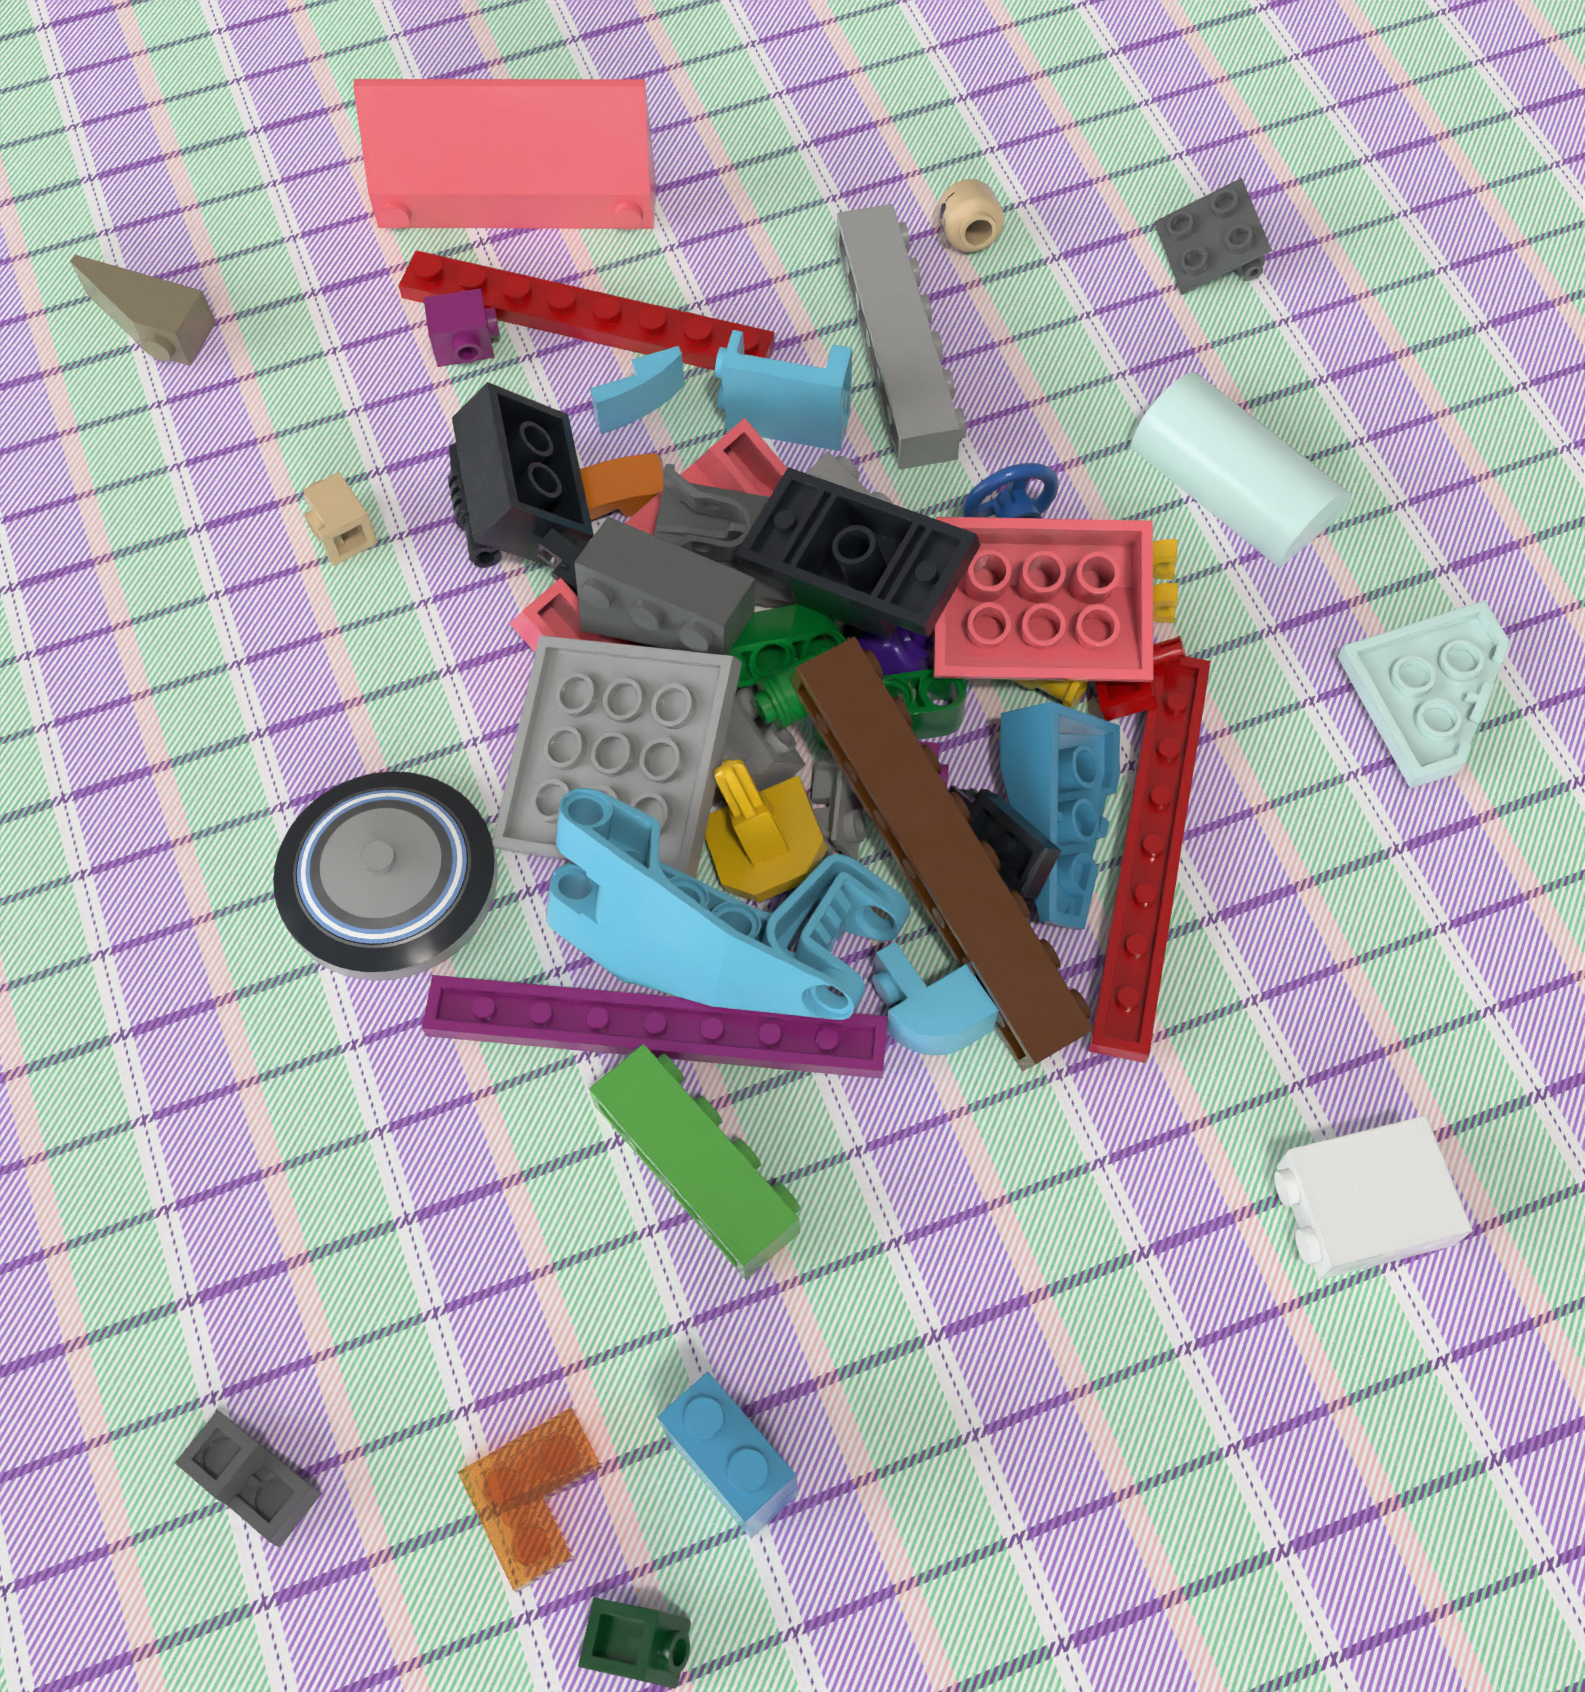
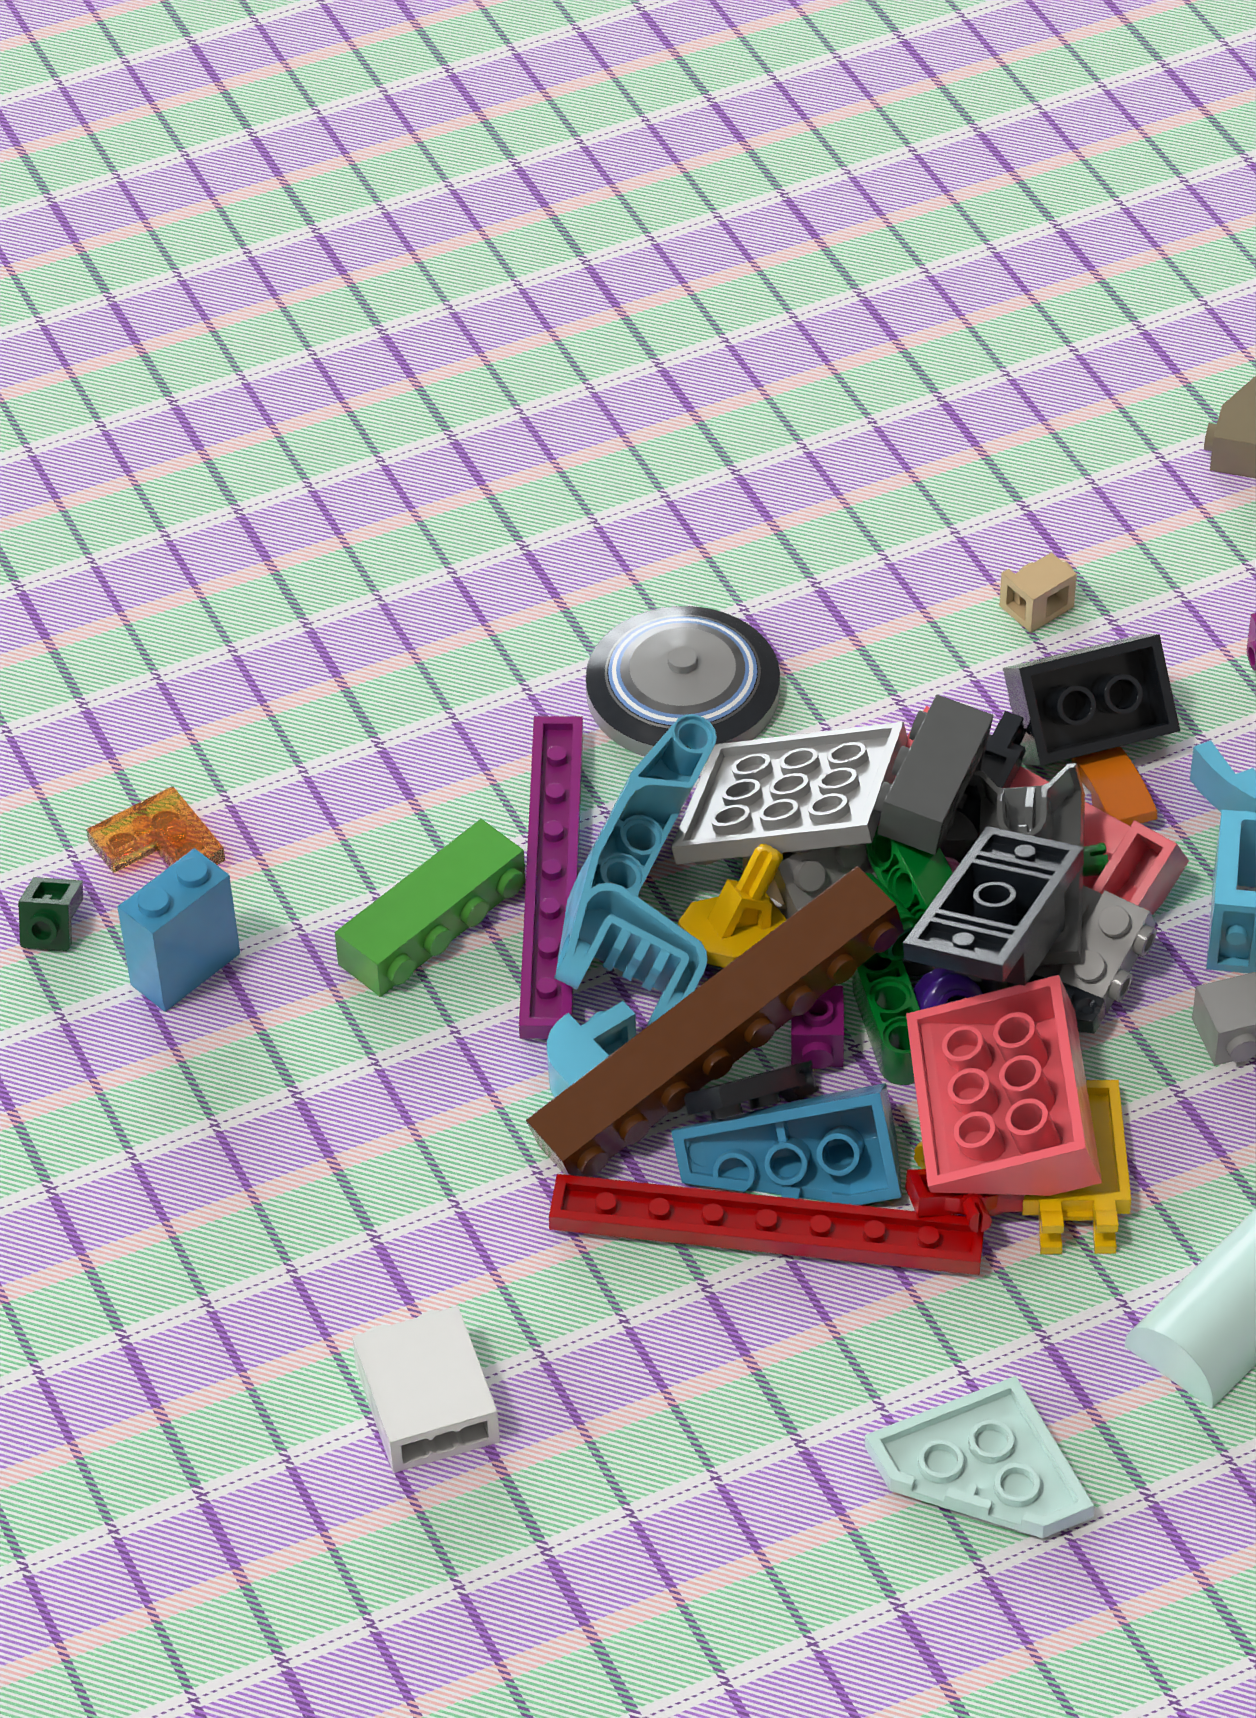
camera: 85 degrees right, 15 degrees down
(248, 1478) = (172, 675): dark grey slope -> none
(1013, 500) = (1133, 1086): blue piece -> none

